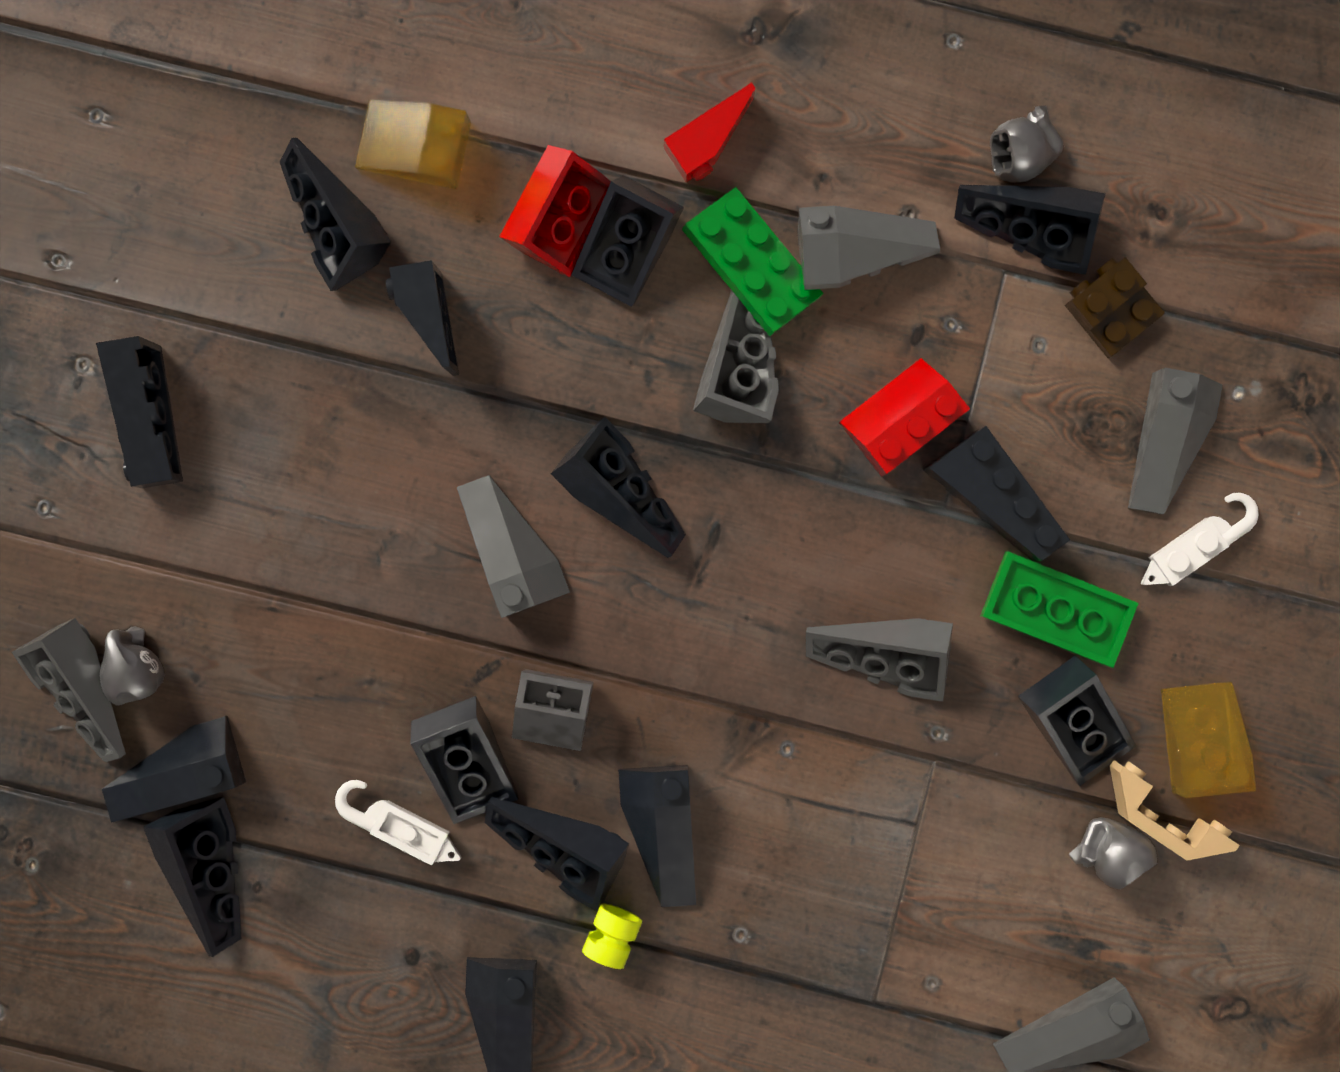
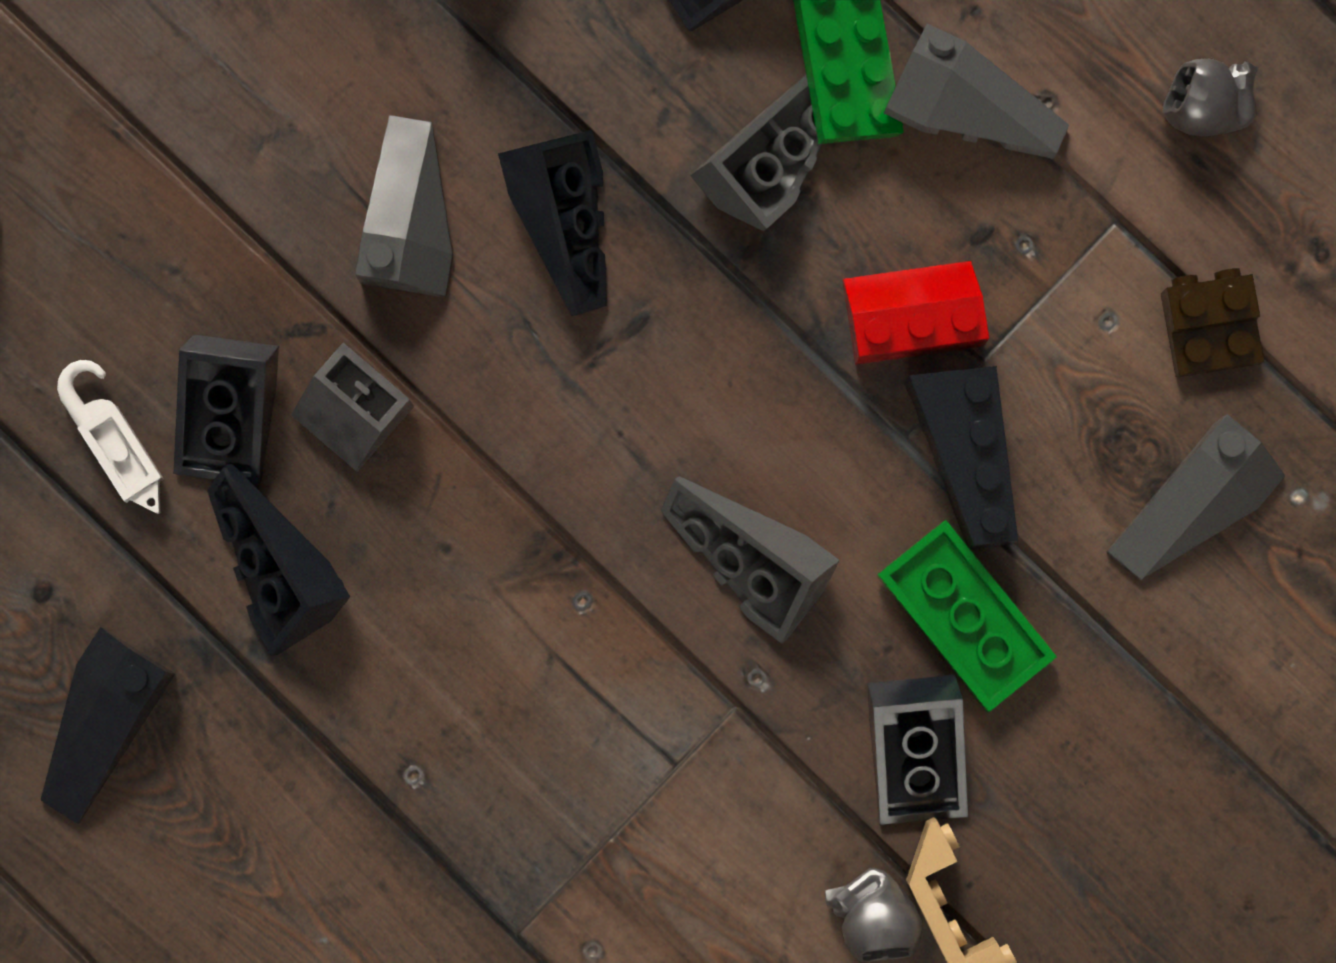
camera: 25 degrees right, 5 degrees down
(610, 940) = (272, 689): neon yellow wheel -> none
(660, 821) = (398, 597): black wedge -> none
(1042, 220) = (1186, 188): black wedge -> none
(1199, 544) = (1162, 635): white plate -> none
(1206, 741) = (1048, 851): clear yellow slope -> none

